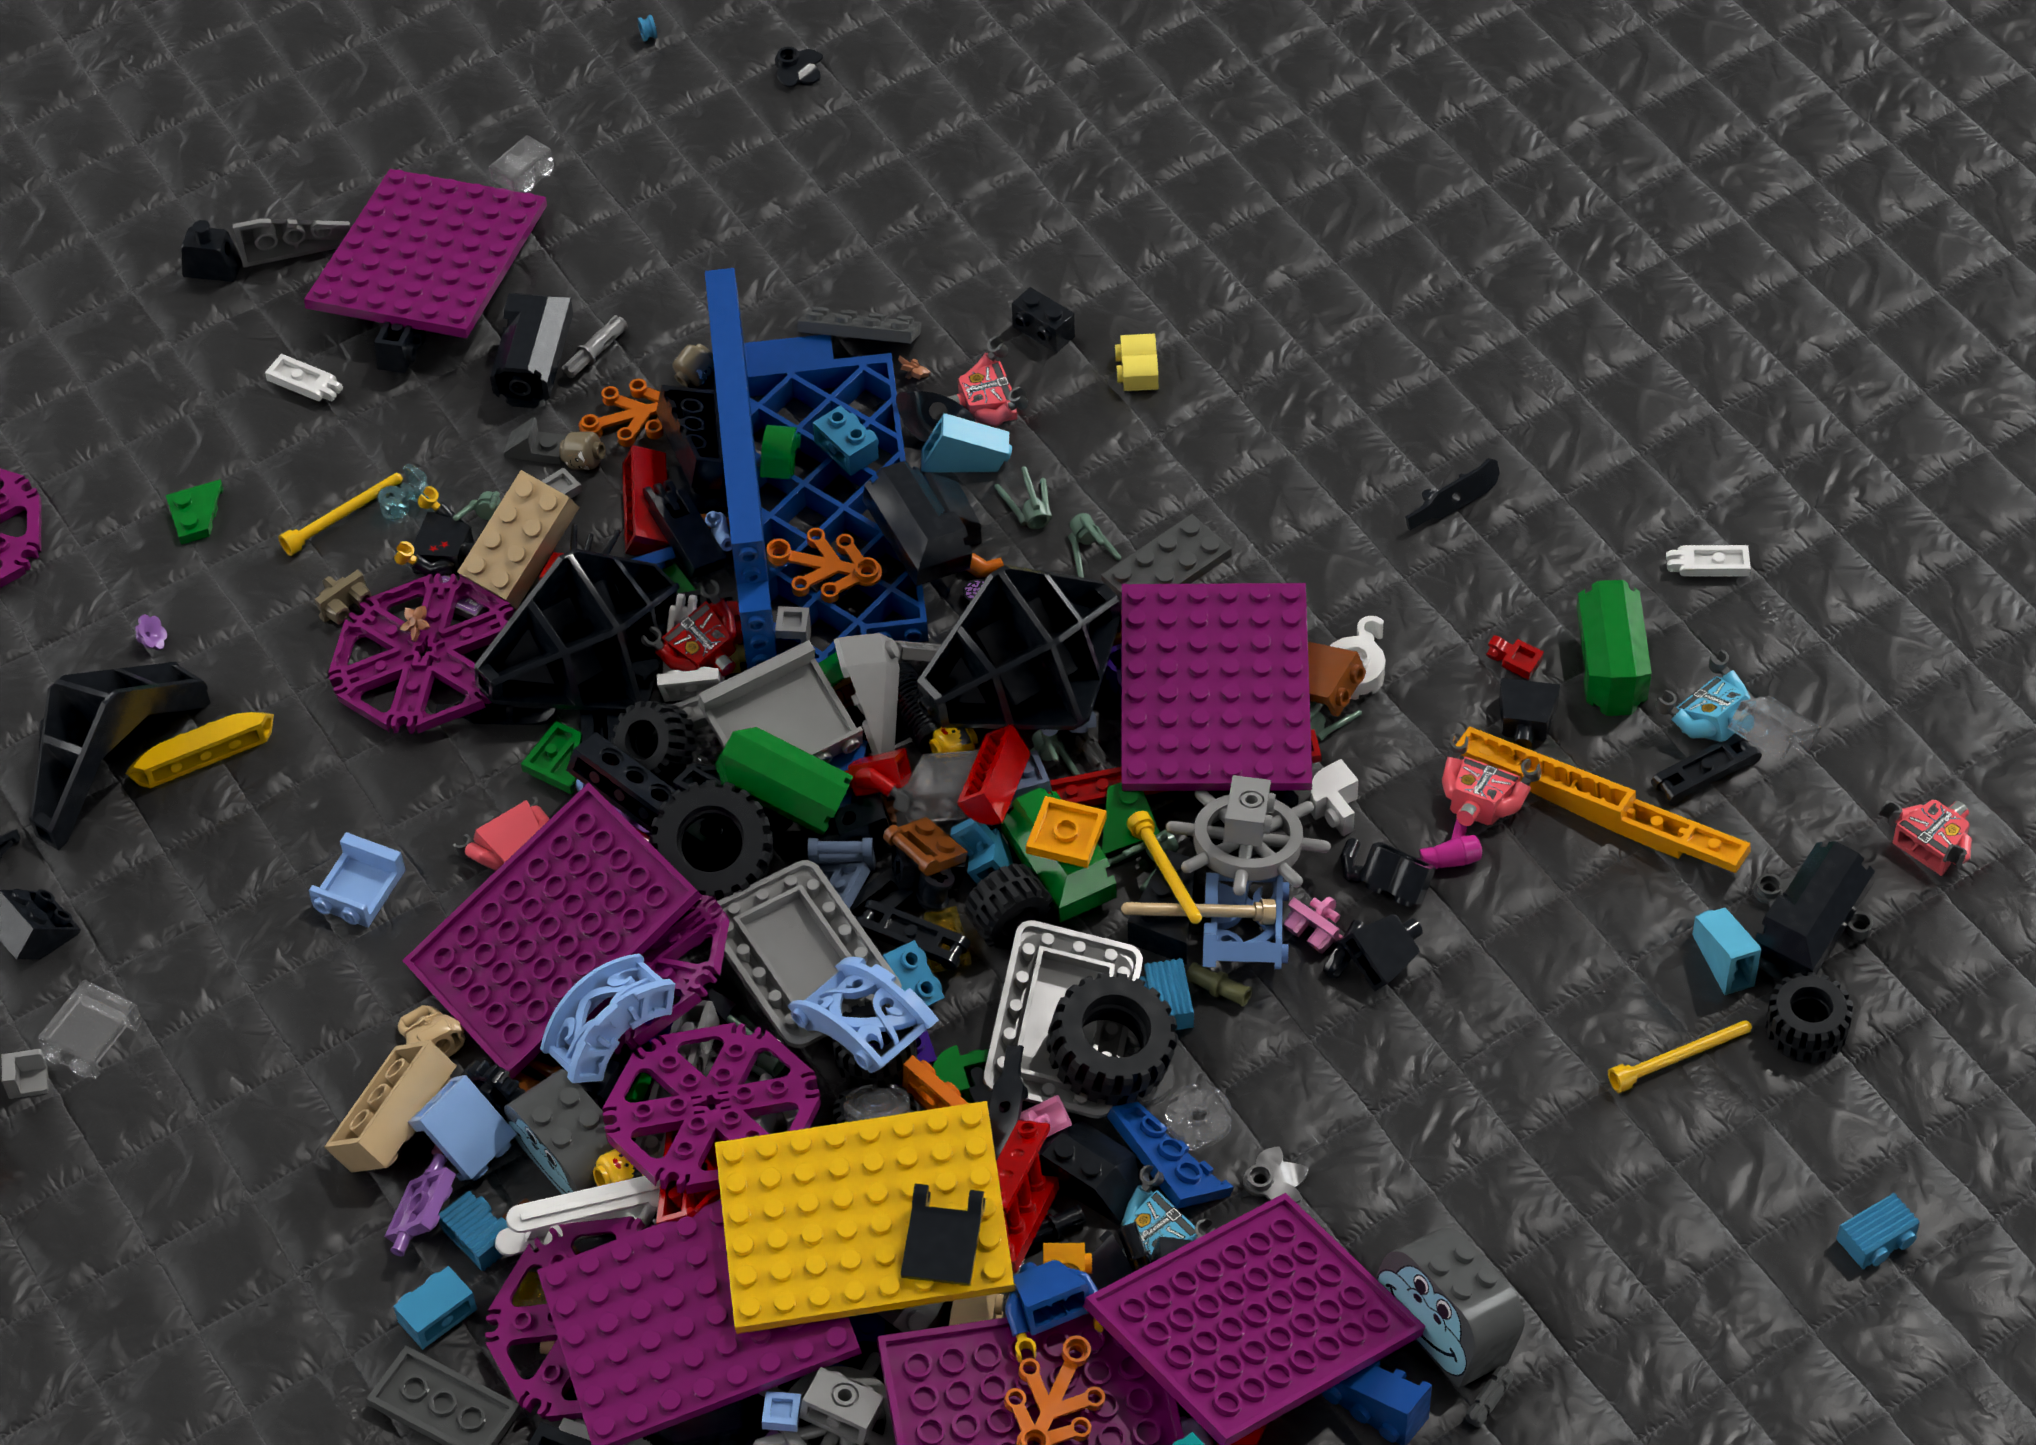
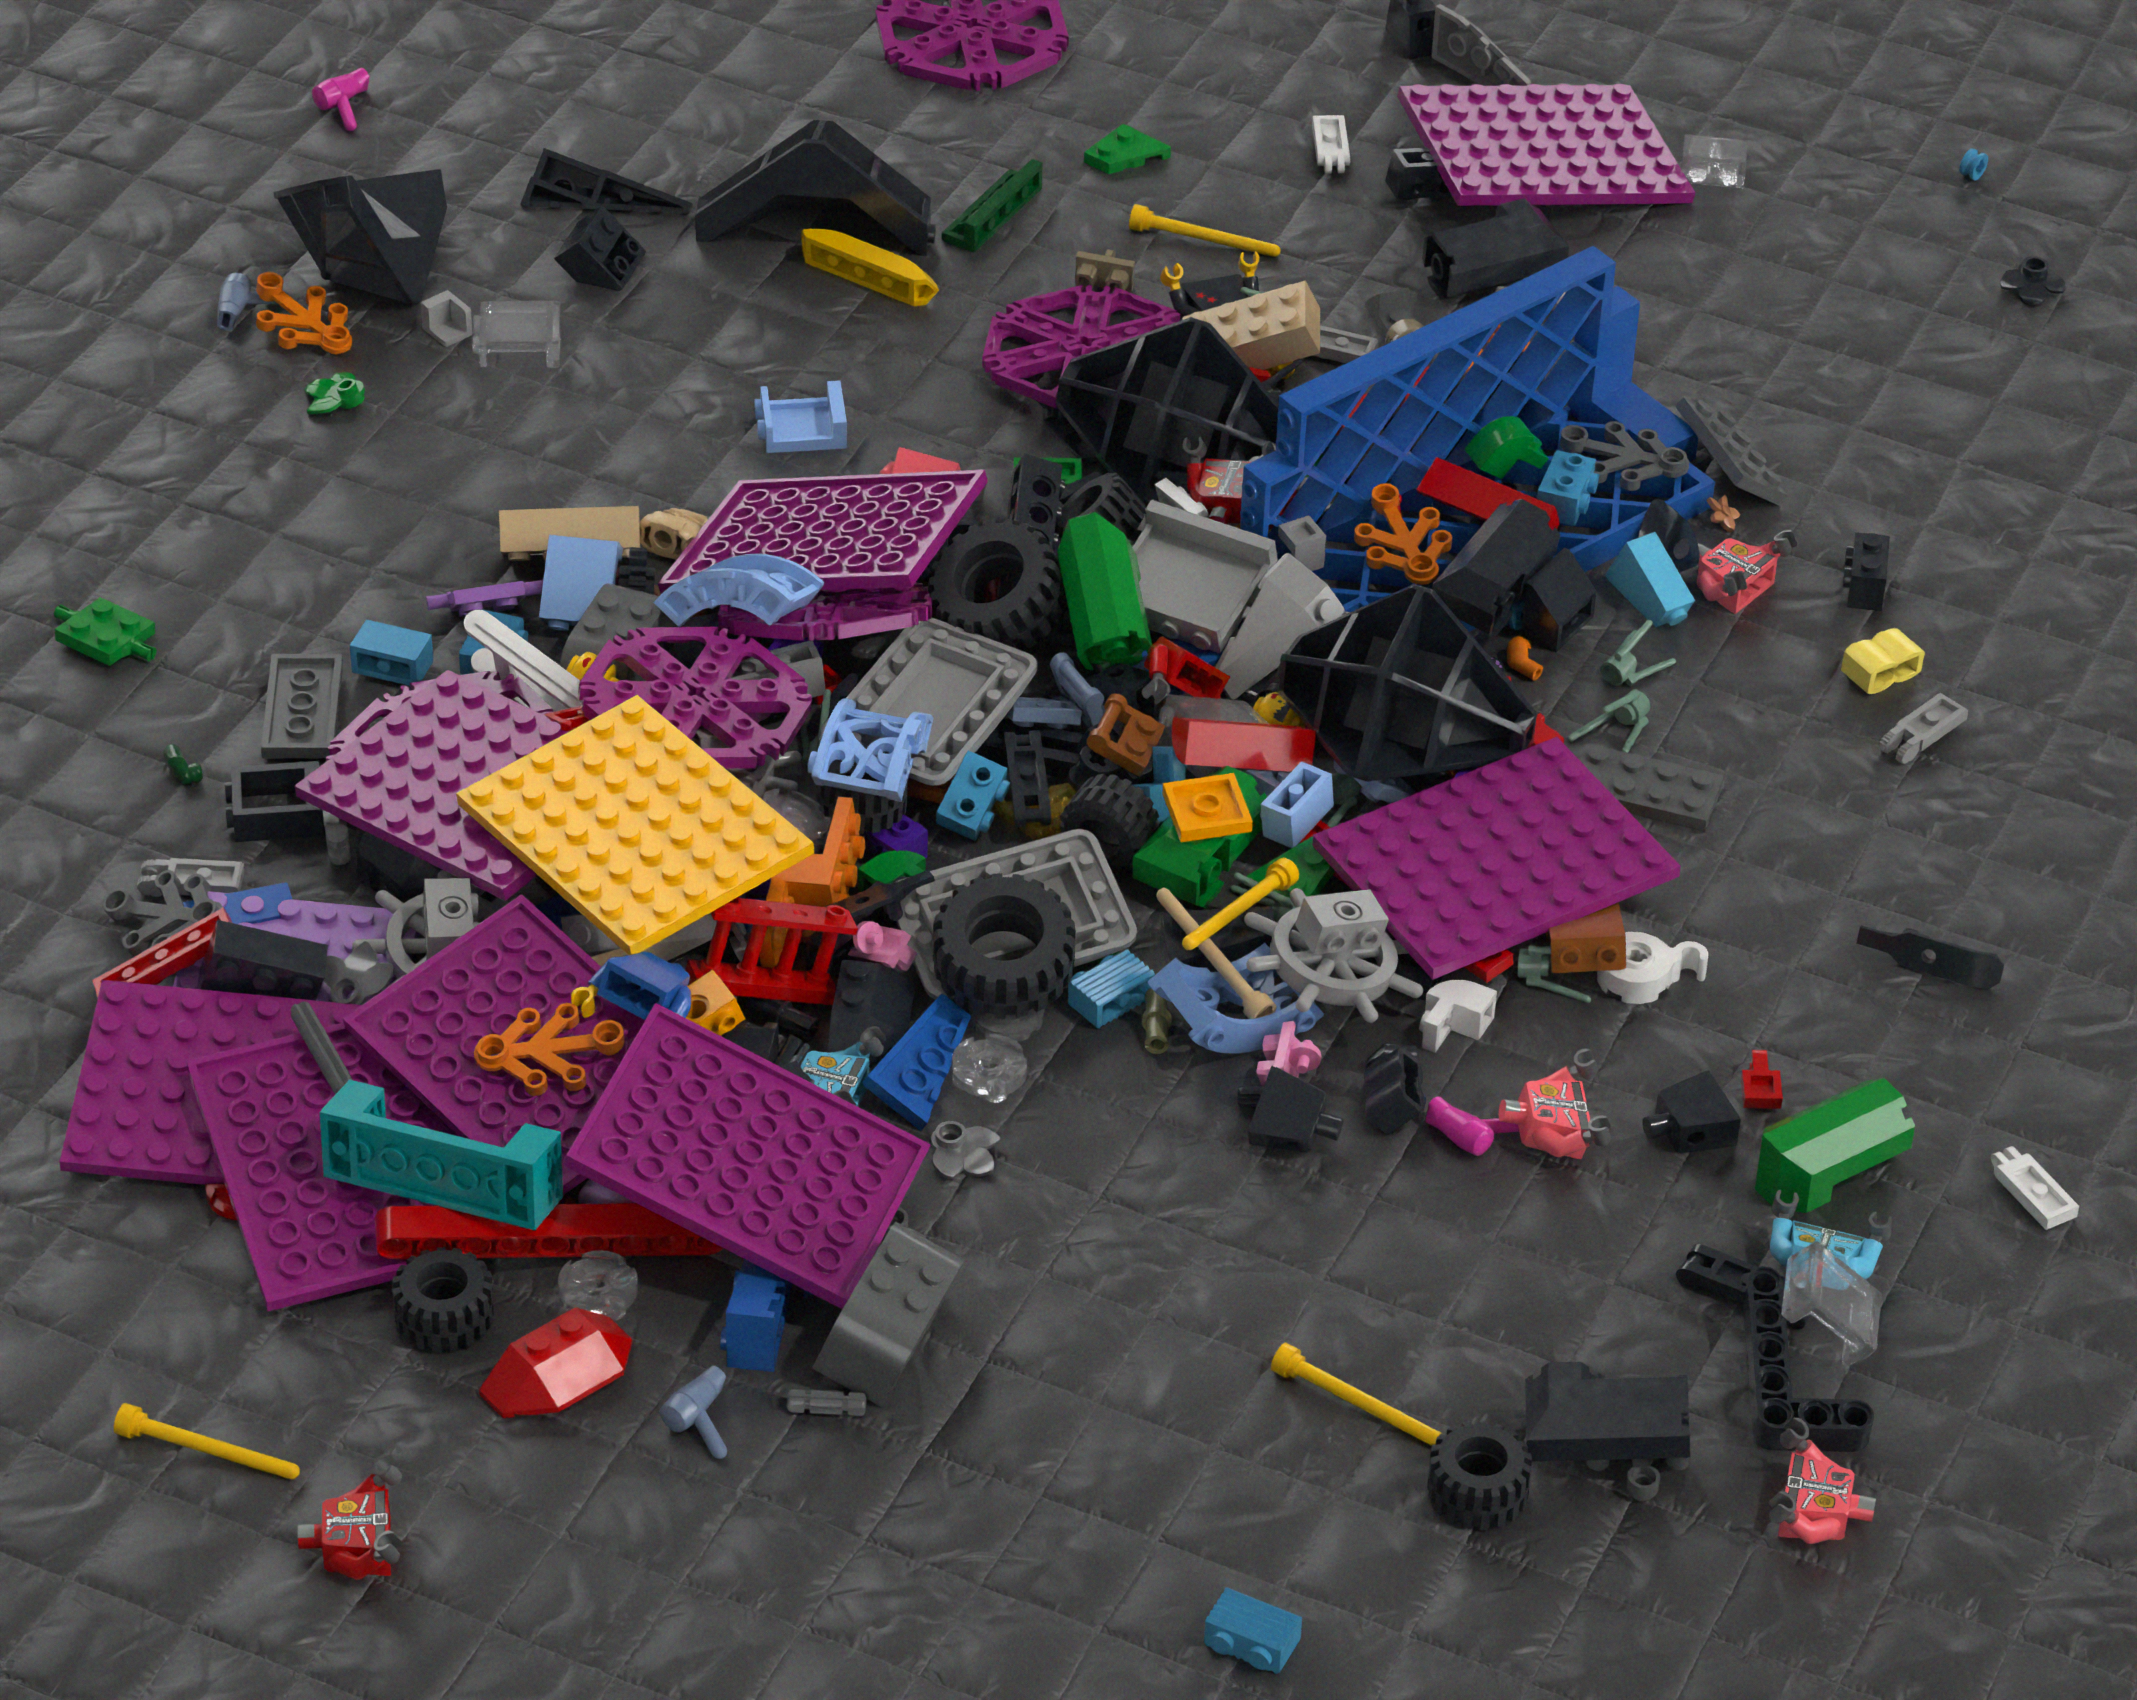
camera: 55 degrees right, 10 degrees down
(46, 1204) = (337, 391): none -> green plate
(150, 632) = (969, 178): medium lavender plant -> none
(202, 621) = (995, 207): none -> dark green fence
(395, 500) = (1270, 268): clear light blue leg -> none
(415, 621) = (1104, 318): nougat plant -> none
(781, 1411) = (411, 884): light blue plate -> none
(821, 494) = (1473, 492): none -> red brick
(857, 367) = (1667, 461): none -> dark grey plant
(942, 1240) = (638, 870): black flag -> none
(1075, 775) = (1297, 804): none -> light blue brick
(1220, 375) = (1923, 727): none -> light grey hinge
(1609, 804) = (1626, 1217): light orange slope -> none
(1727, 949) = (1500, 1377): medium azure slope -> none
(1811, 793) = (1773, 1373): none -> black beam

